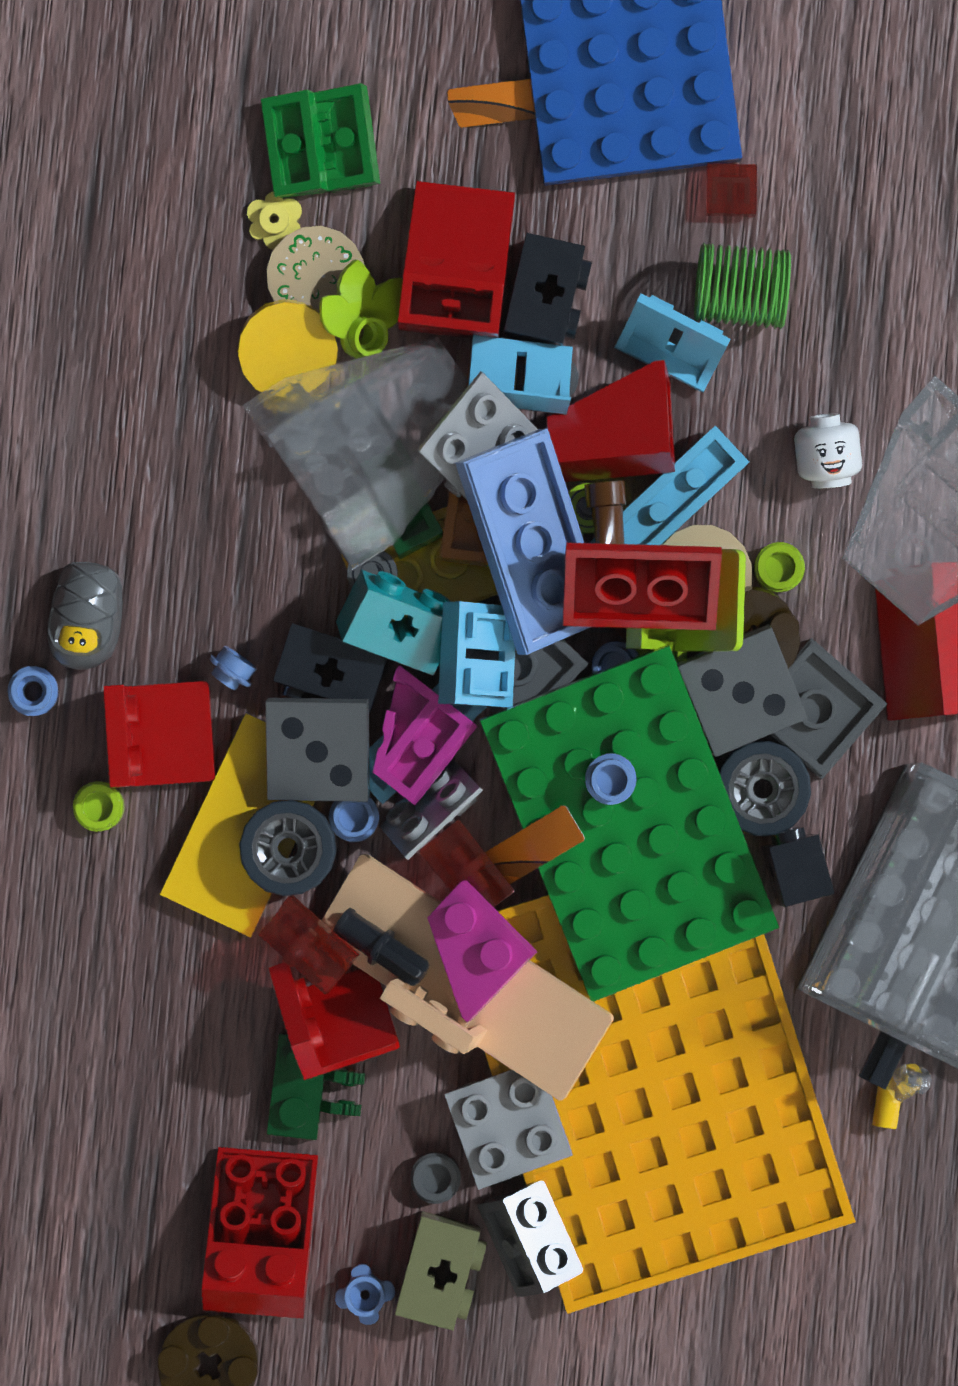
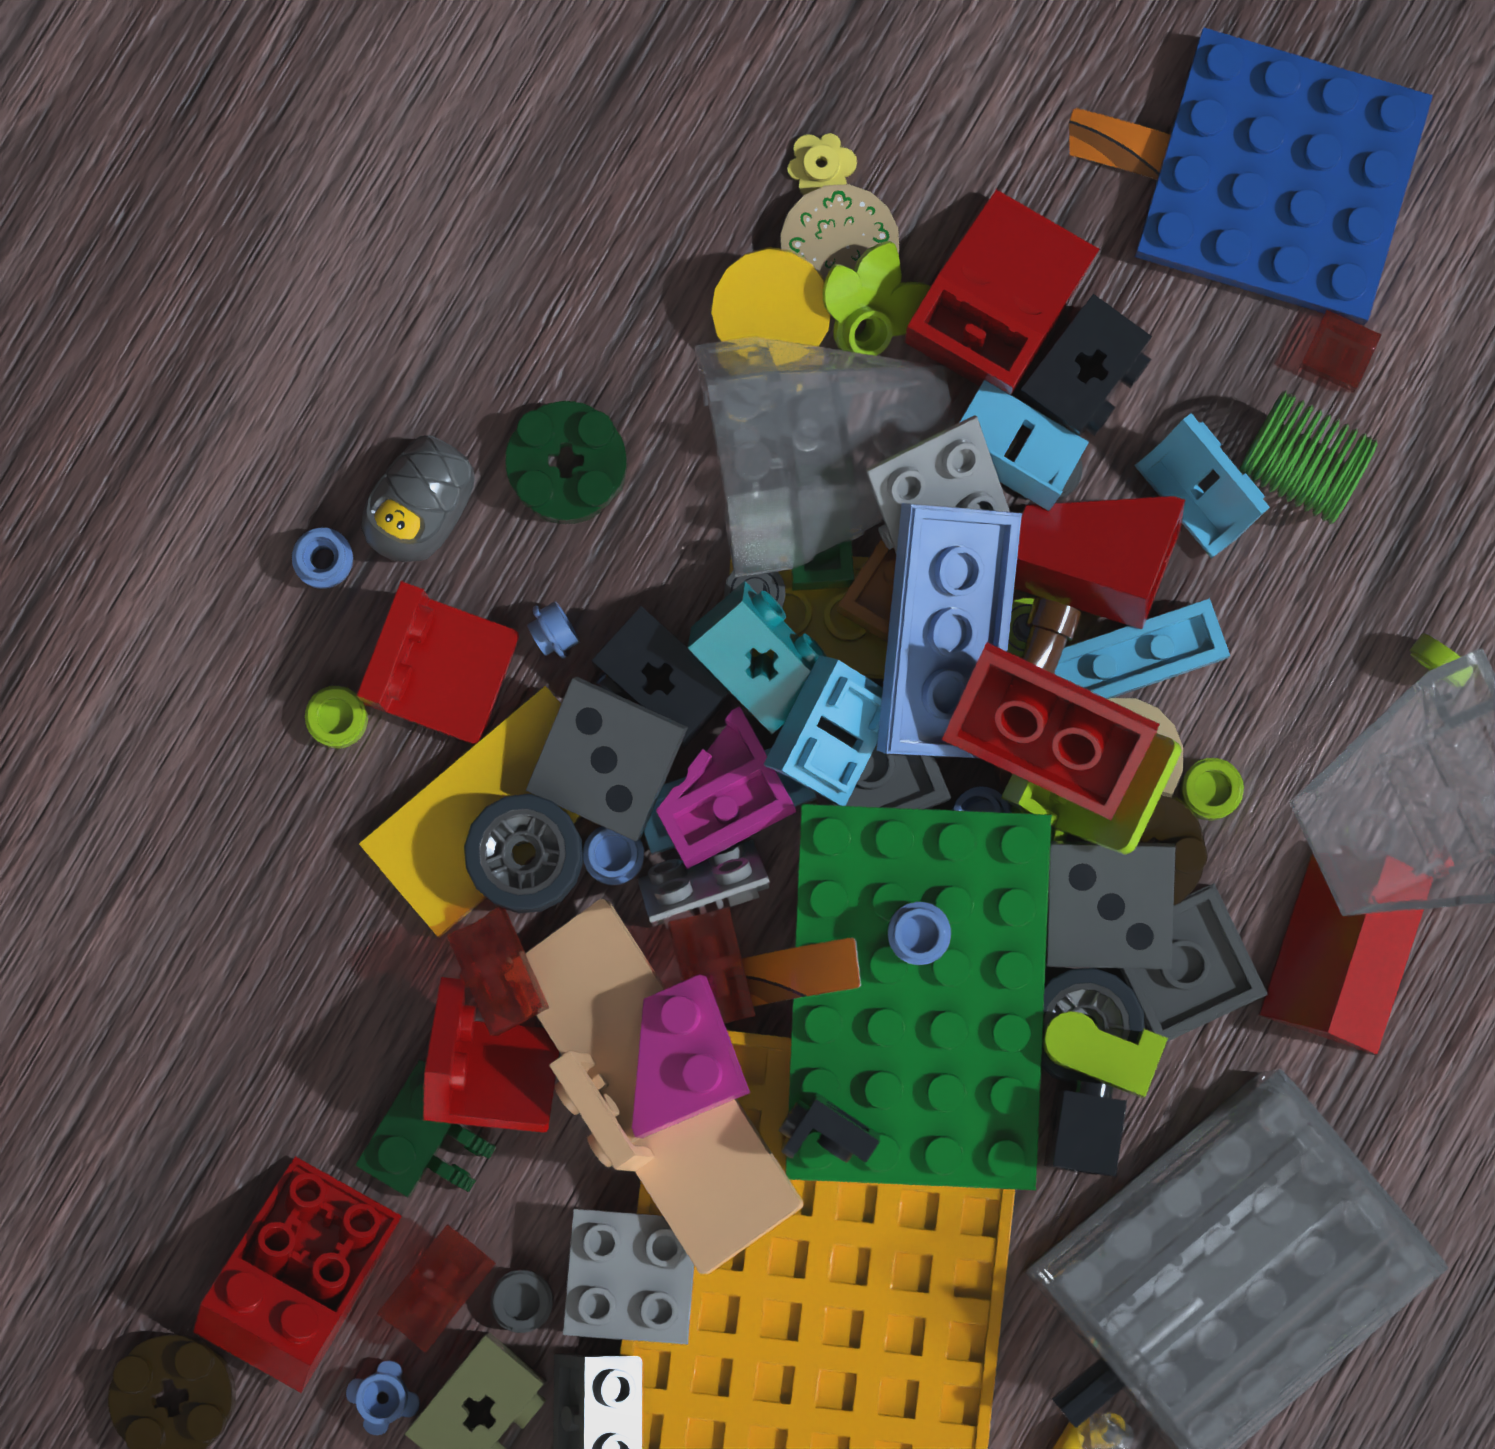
camera: 30 degrees right, 5 degrees down
(157, 523) = (542, 436): none -> dark green plate
(320, 141) = (910, 101): green slope -> none
(369, 1197) = (436, 1287): none -> clear red hips
(381, 947) = (577, 1011): black axle -> none
(616, 950) = (840, 1131): none -> black bracket
(765, 807) = (1079, 1046): none -> lime leg
(828, 451) = (1323, 683): white head -> none
(899, 392) = (1431, 652): none -> lime tile

